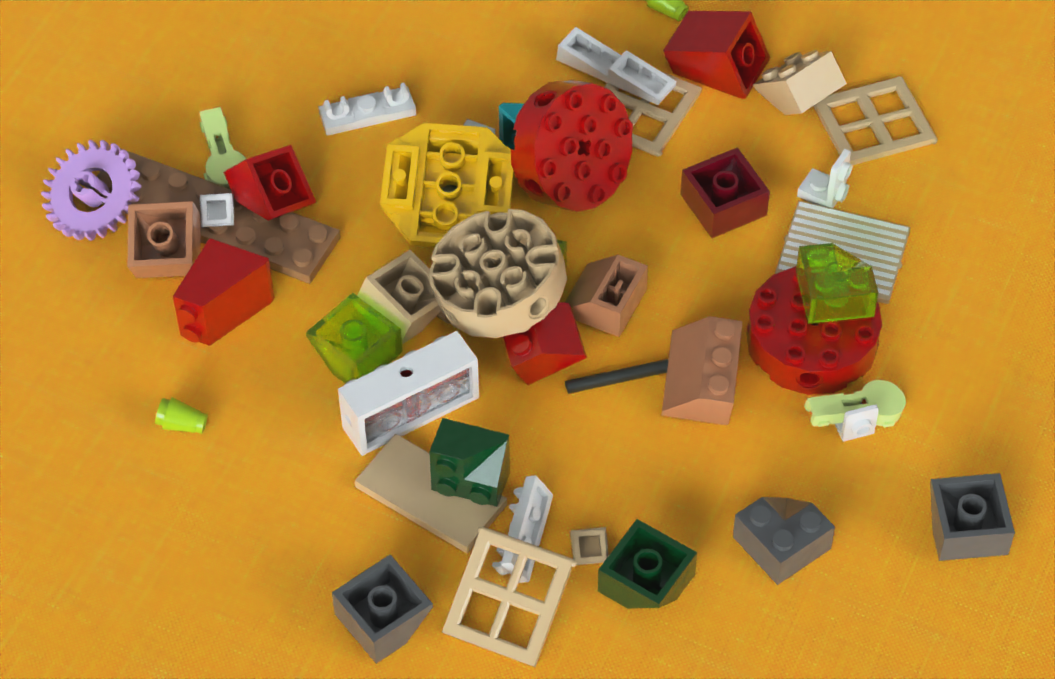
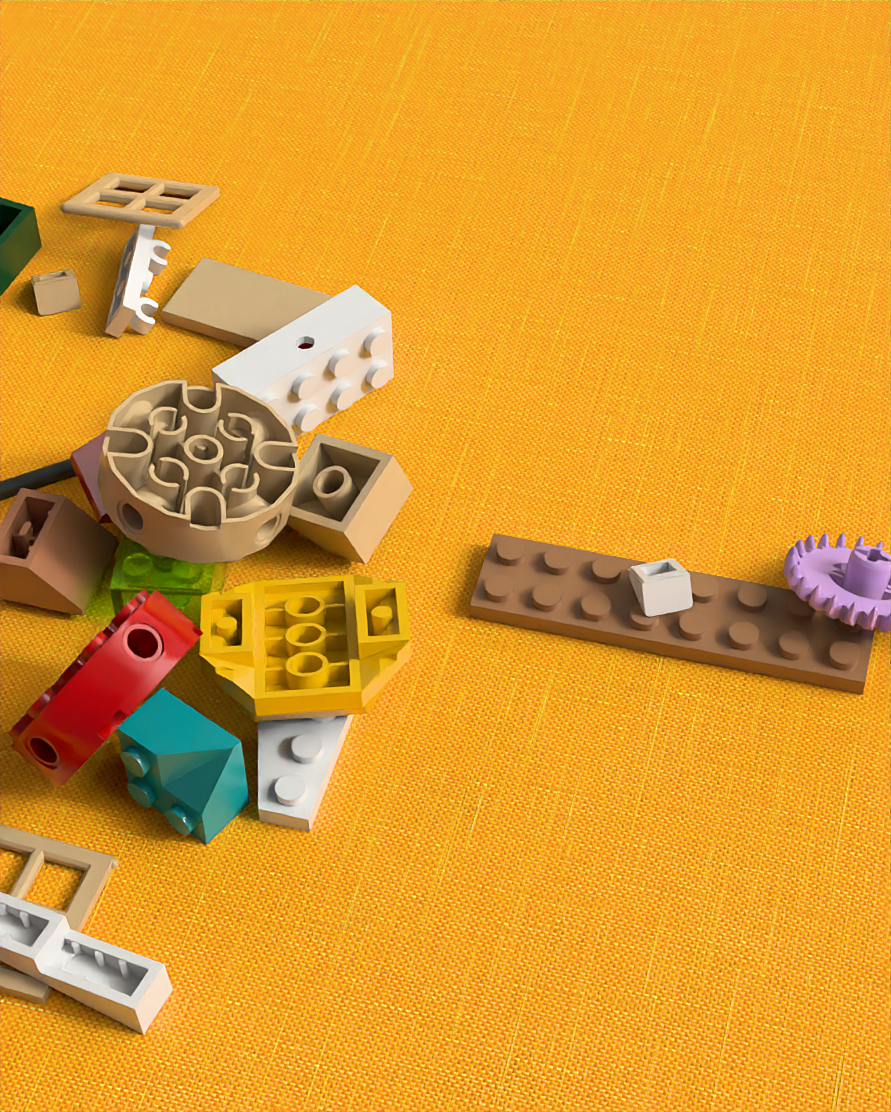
camera: 170 degrees right, 5 degrees down
(163, 238) = (713, 515): nougat slope -> none
(180, 417) = (603, 339): lime cone -> none
(221, 292) = (599, 461): red slope -> none
(222, 152) = (666, 681): yellowish green piece -> none
(270, 183) = (593, 625): red slope -> none
(355, 339) = (403, 422): clear neon green slope -> none
(367, 110) = (485, 823): white plate -> none
(381, 608) = (289, 170): dark grey slope -> none
(469, 462) = (208, 291): dark green slope -> none

